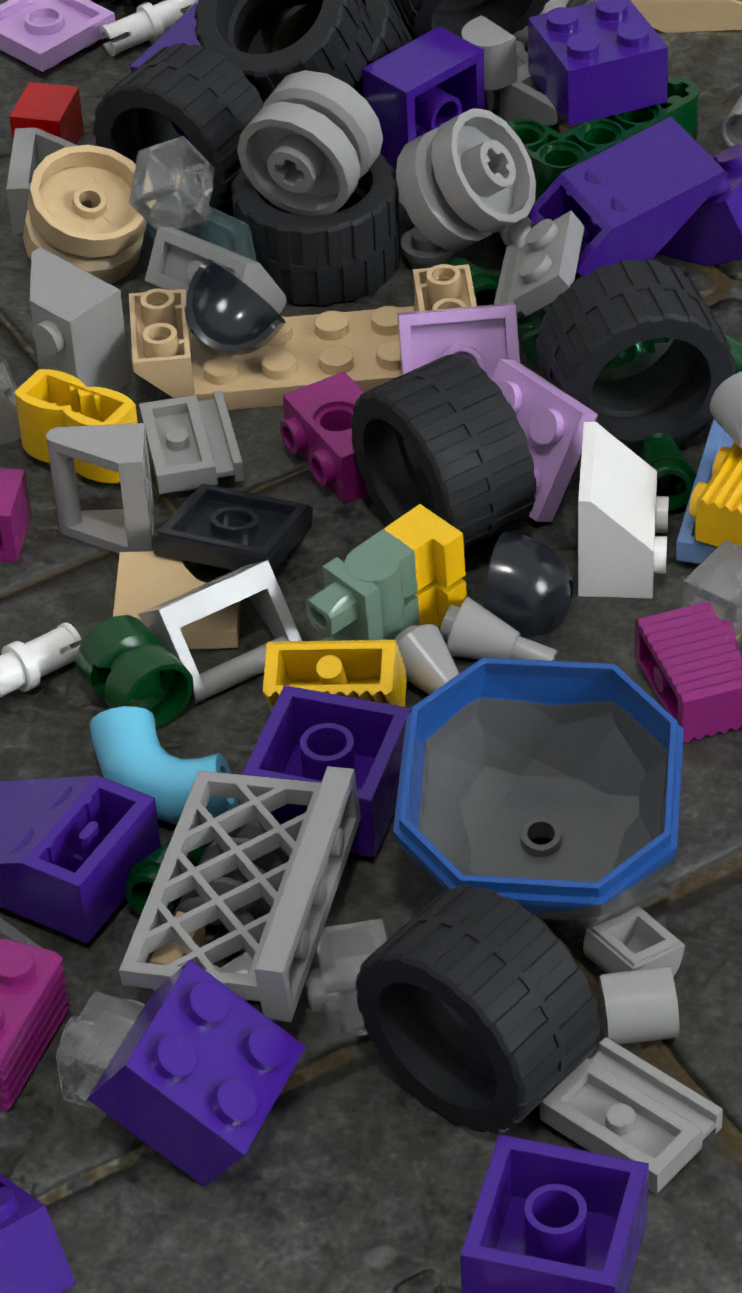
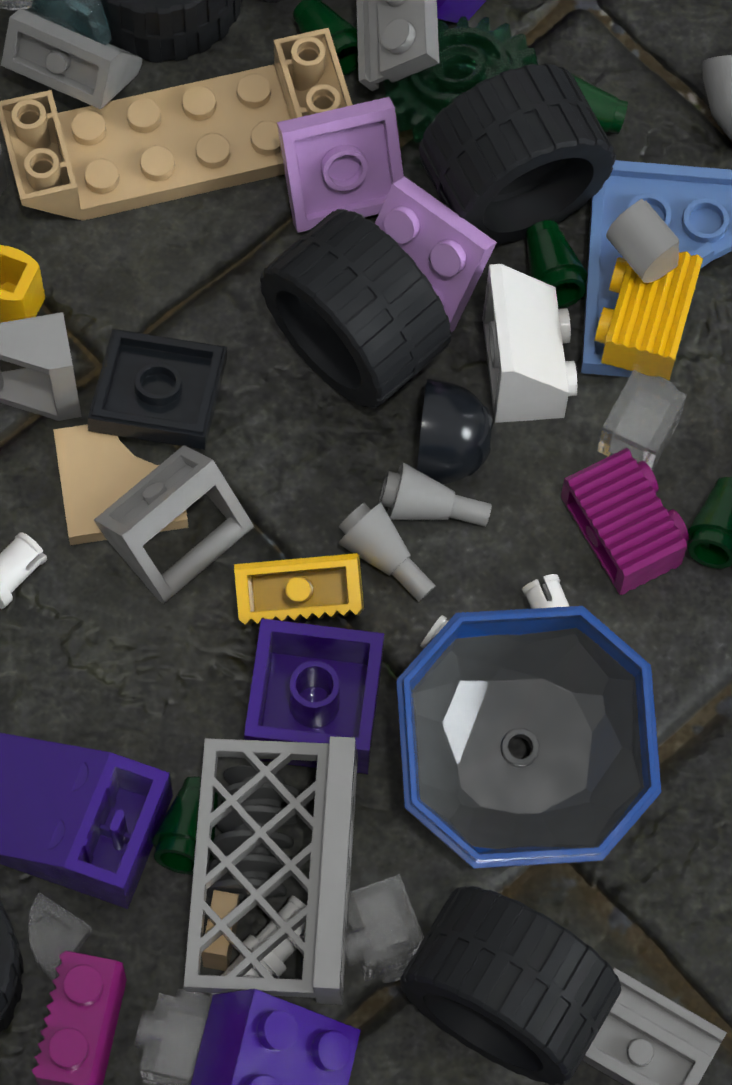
camera: 15 degrees left, 25 degrees up
(133, 757) = (149, 716): medium azure cylinder -> none
(134, 669) = (97, 585): dark green wheel -> none
(190, 442) = (90, 274): light grey plate -> none
(228, 312) = (107, 123): black helmet -> none
(320, 433) = (226, 228): magenta brick -> none
(392, 581) = (327, 474): sand green hips -> none
(632, 943) = (626, 867): light grey brick -> none
(638, 1005) = (636, 928): light grey brick -> none

